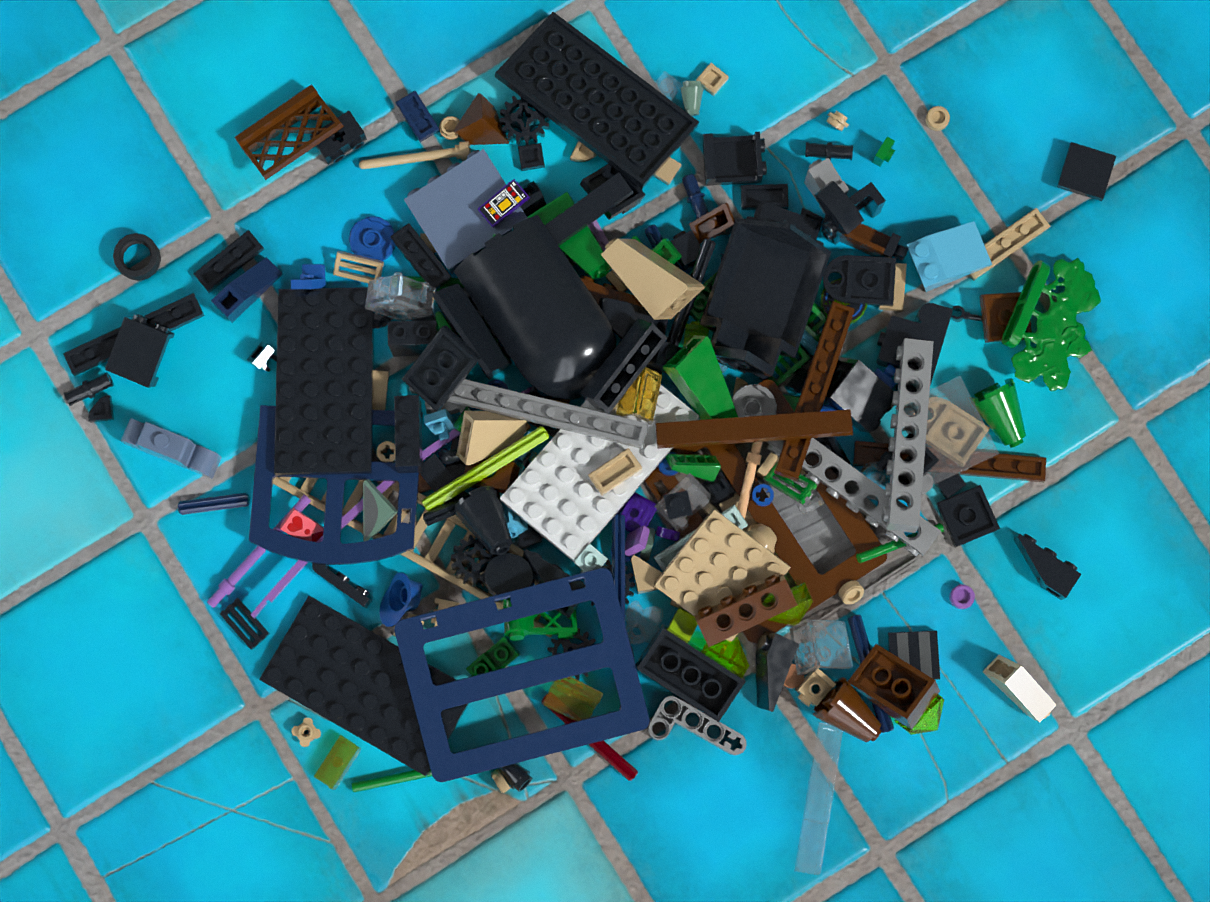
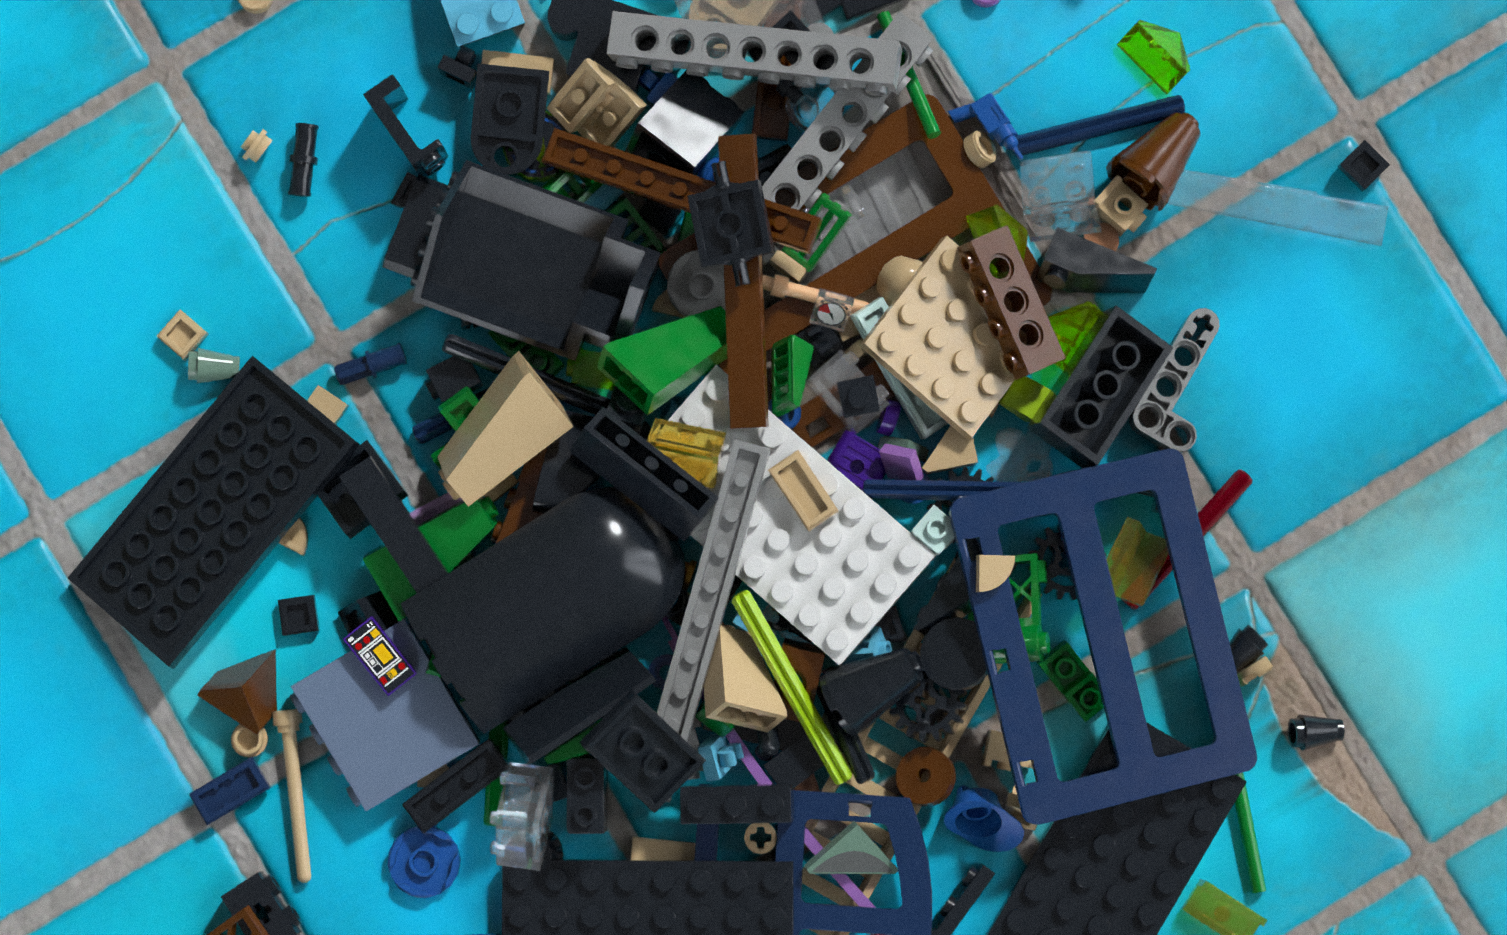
camera: 90 degrees left, 5 degrees up
(360, 259) = (457, 880): tan tile -> none
(427, 570) = (914, 765): none -> reddish brown piece
(460, 824) = (1314, 731): none -> black cone
(534, 118) = (242, 641): black gear -> none
(562, 595) = (992, 571): none -> tan tile
(668, 86) = (192, 403): clear plate -> none
(715, 223) = (416, 337): reddish brown slope -> none
(733, 159) = (312, 304): black panel -> none
(738, 492) = (831, 310): none -> tile
(757, 489) = (825, 280): blue bush -> none
(771, 193) = (369, 251): black tile -> none
(791, 417) = (731, 223): none -> black plate
(821, 174) = (359, 165): light grey hips -> none
(839, 206) = (403, 142): black slope -> none
(849, 856) = (1363, 165): none -> black plate
(866, 240) = (441, 110): reddish brown panel -> none
(871, 336) = (596, 104): none -> tan slope
(871, 600) = (991, 119): none -> blue piece
(885, 152) = (308, 75): green plate -> none
(894, 686) = (1120, 90): reddish brown slope -> none
(917, 649) = (1073, 62): tile -> none

